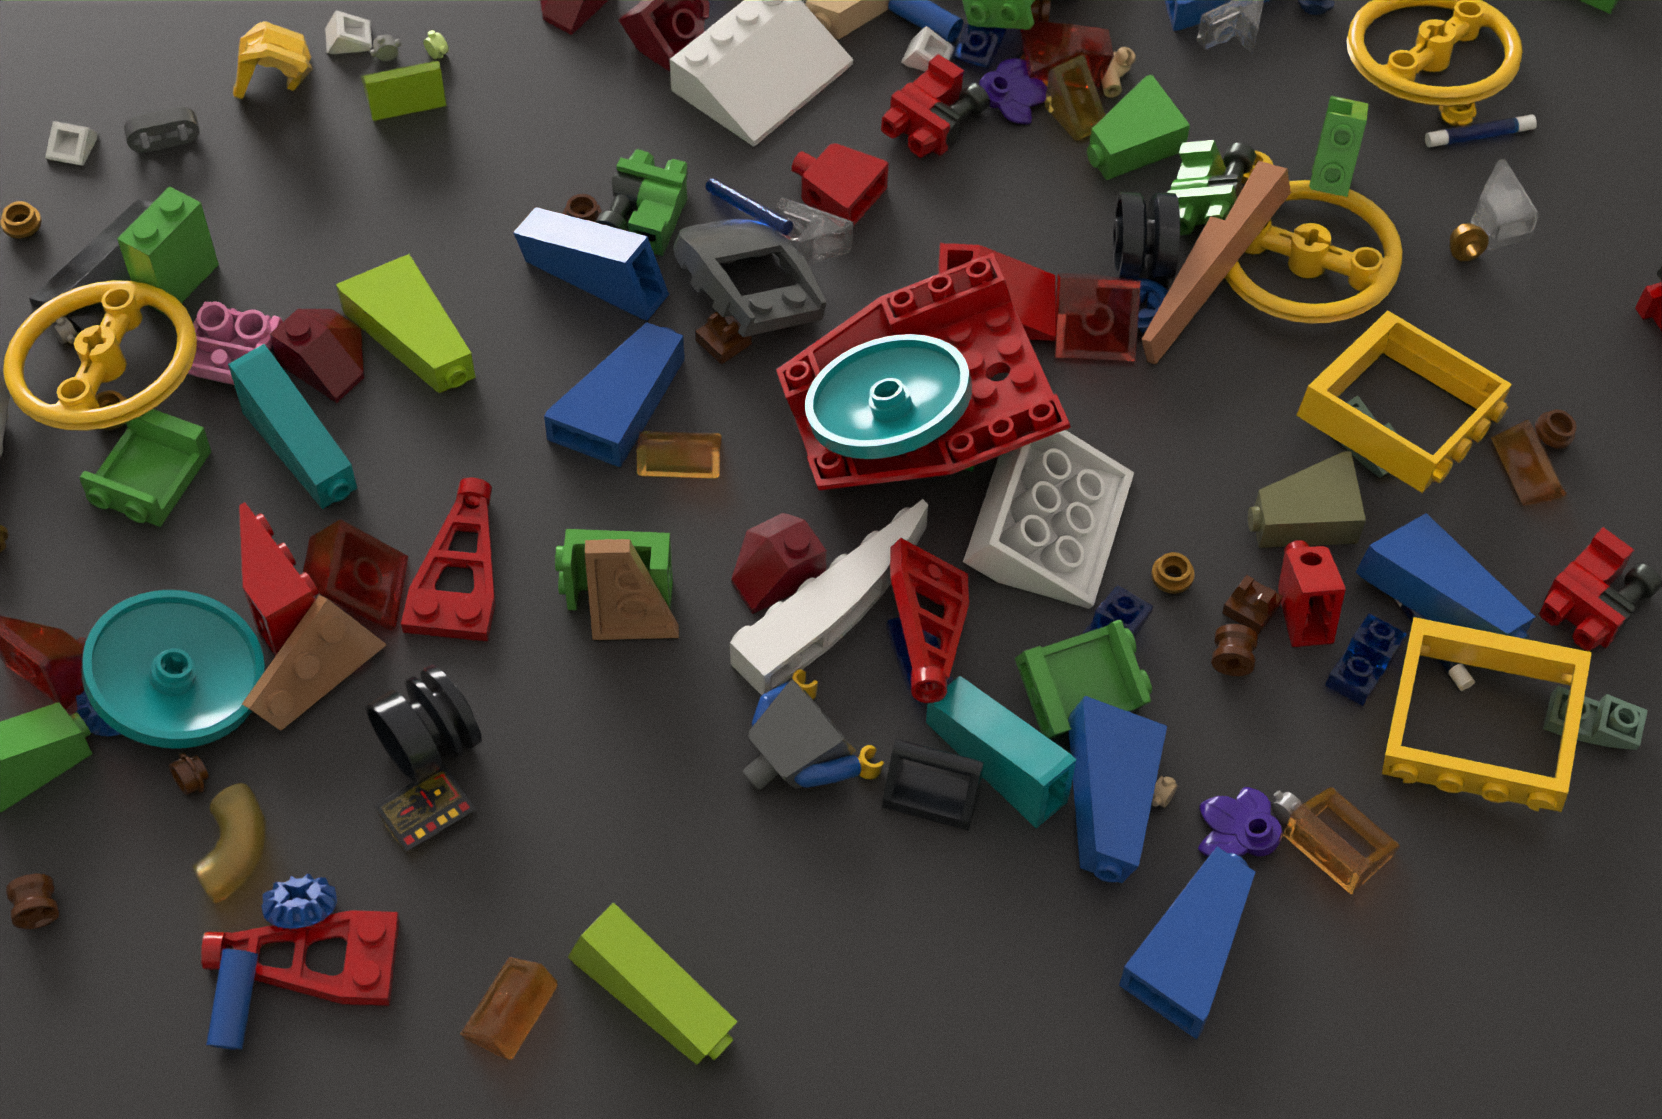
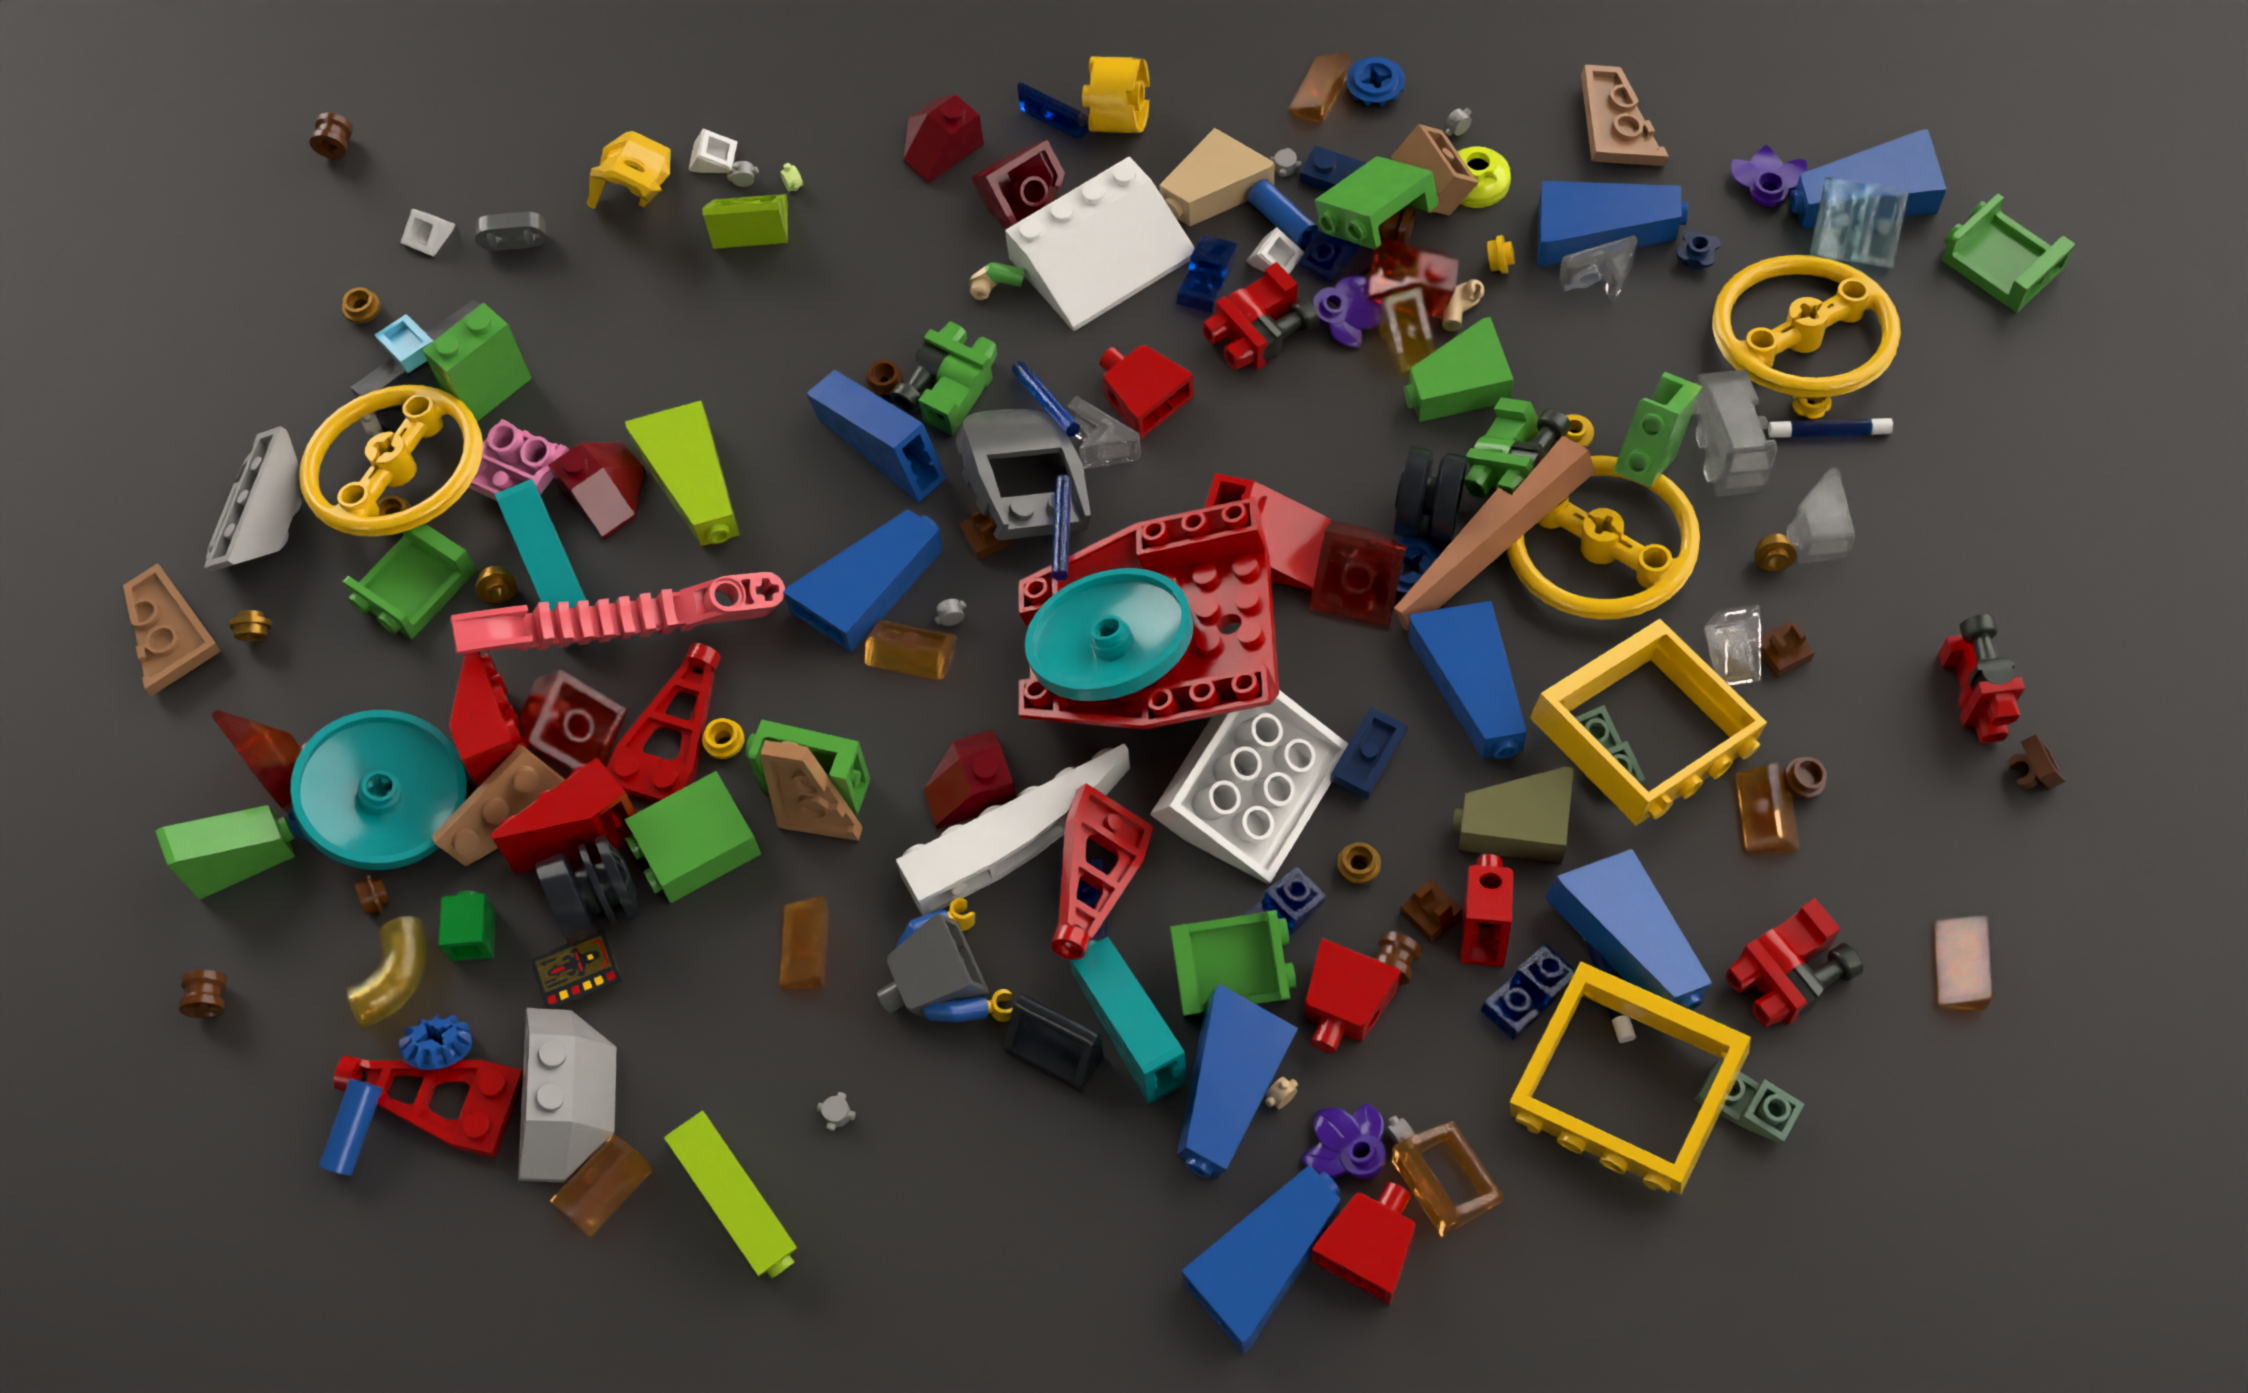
camera: 20 degrees right, 5 degrees up
(82, 246) = (404, 342): none -> medium azure tile
(239, 458) = (496, 584): none -> pearl gold plate
(301, 785) = (467, 926): none -> green brick
(383, 658) = (567, 816): none -> red slope
(447, 928) = (564, 1094): none -> light grey wedge
(508, 428) = (668, 611): none -> coral piece
(512, 660) = (691, 838): none -> bright green brick
(515, 555) = (723, 728): none -> yellow plate
(653, 741) = (804, 944): none -> clear orange slope
(661, 105) = (991, 275): none -> arm
(710, 413) = (950, 612): none -> light grey piece
(731, 892) = (836, 1111): none -> light grey piece
(806, 314) = (1061, 528): none -> clear blue bar
(869, 77) = (1207, 273): none -> clear blue slope
(1140, 23) = (1500, 254): none -> yellow plate
(1153, 474) = (1369, 753): none -> dark blue plate
(1198, 690) = (1347, 994): none -> red torso
(1228, 388) = (1471, 670): none -> blue slope
(1291, 911) = (1369, 1242): none -> red torso
(1403, 147) = (1732, 434): none -> clear wedge
(1459, 323) = (1735, 643): none -> clear slope
(1501, 323) = (1785, 649): none -> reddish brown tile

